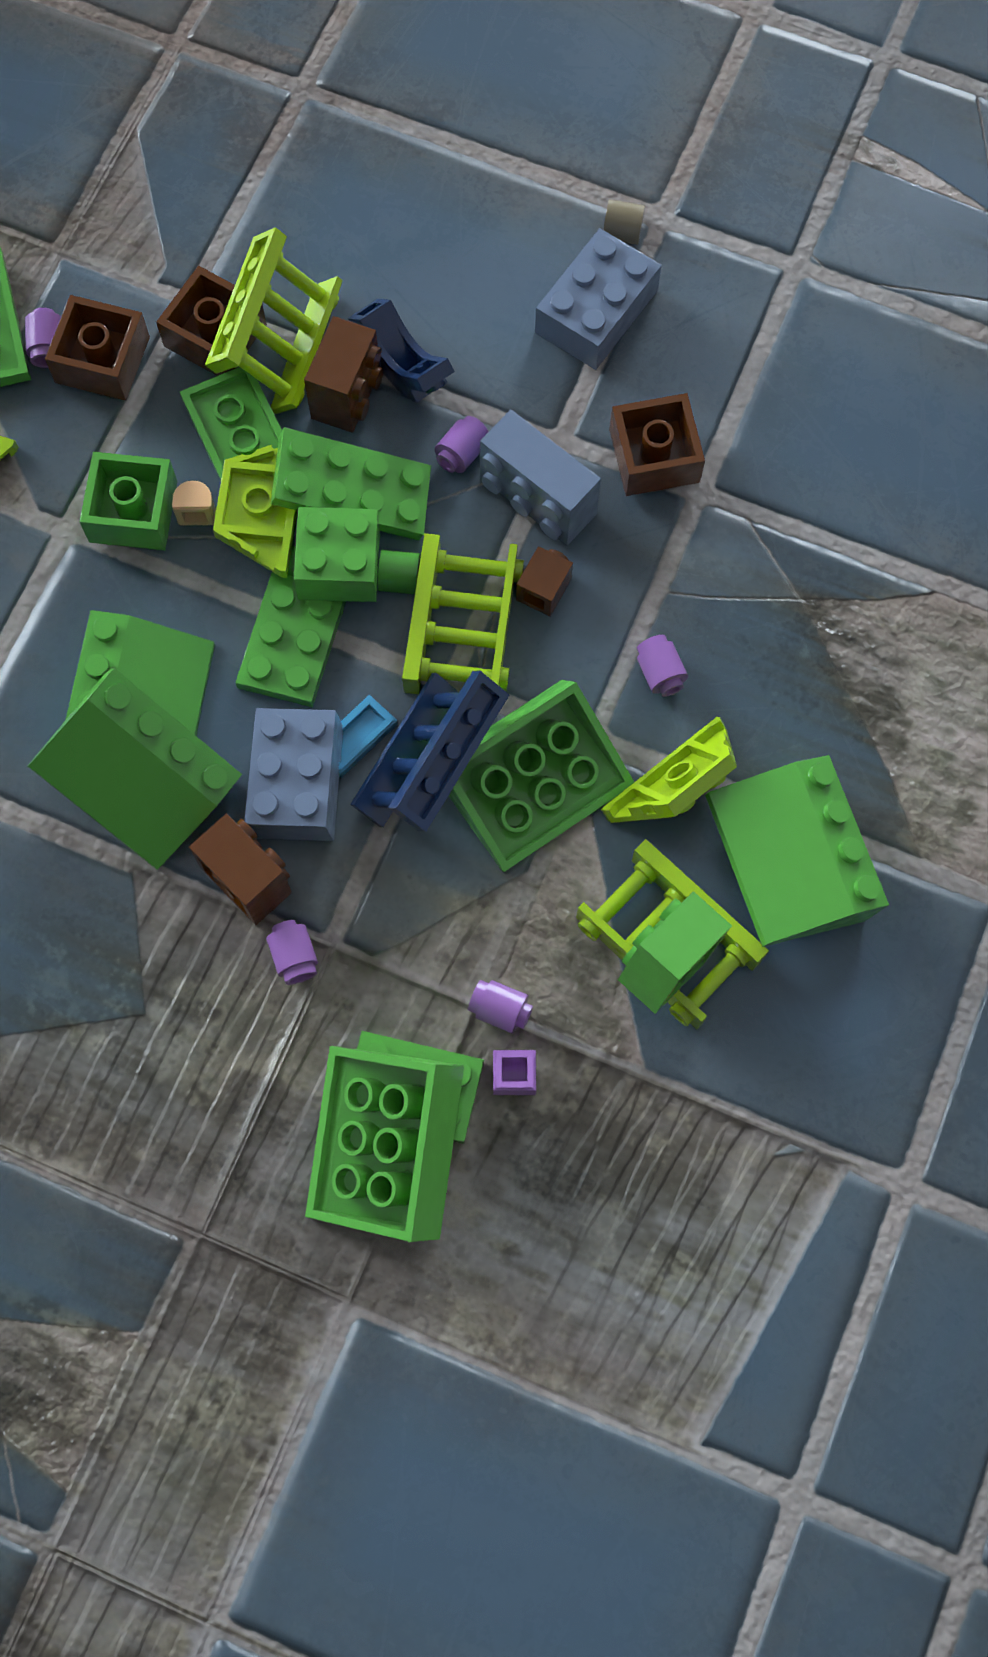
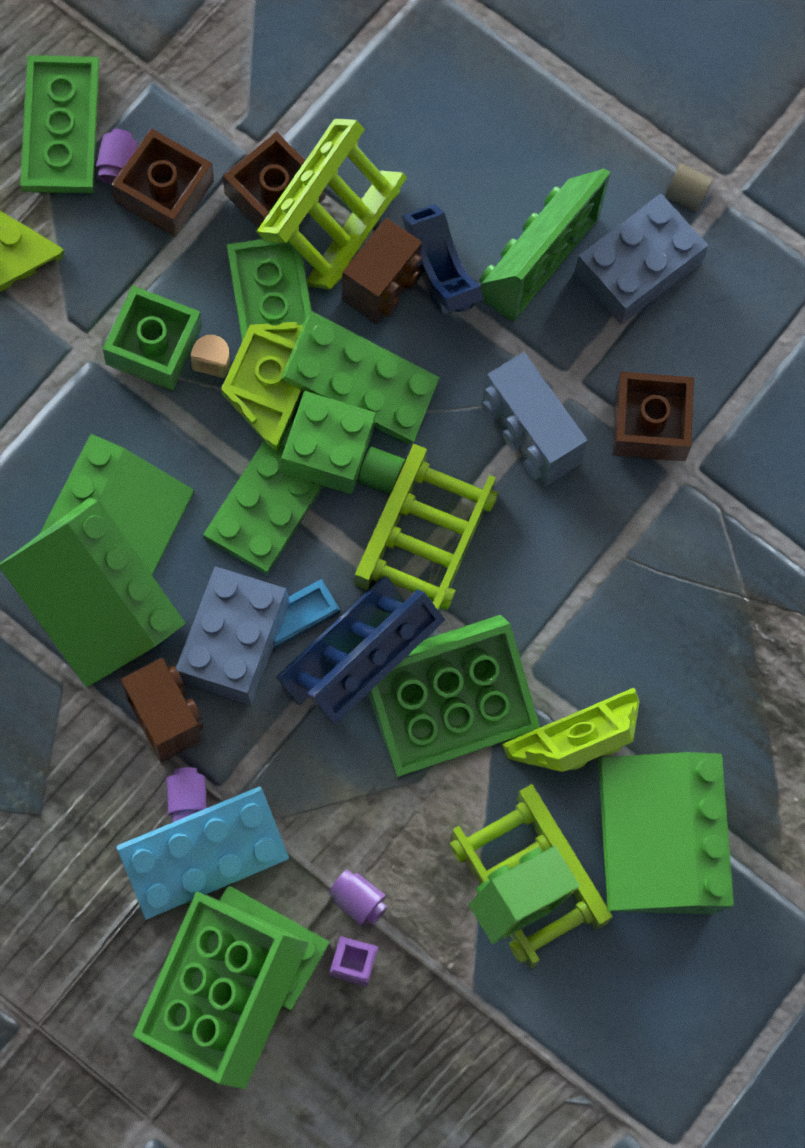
camera: 10 degrees right, 0 degrees up
(325, 1004) = (202, 852): none -> medium azure plate
(460, 444) = (472, 365): medium lavender brick -> none
(499, 305) = (544, 244): none -> bright green slope
(544, 580) = (512, 516): reddish brown brick -> none
(661, 665) = (596, 626): medium lavender brick -> none

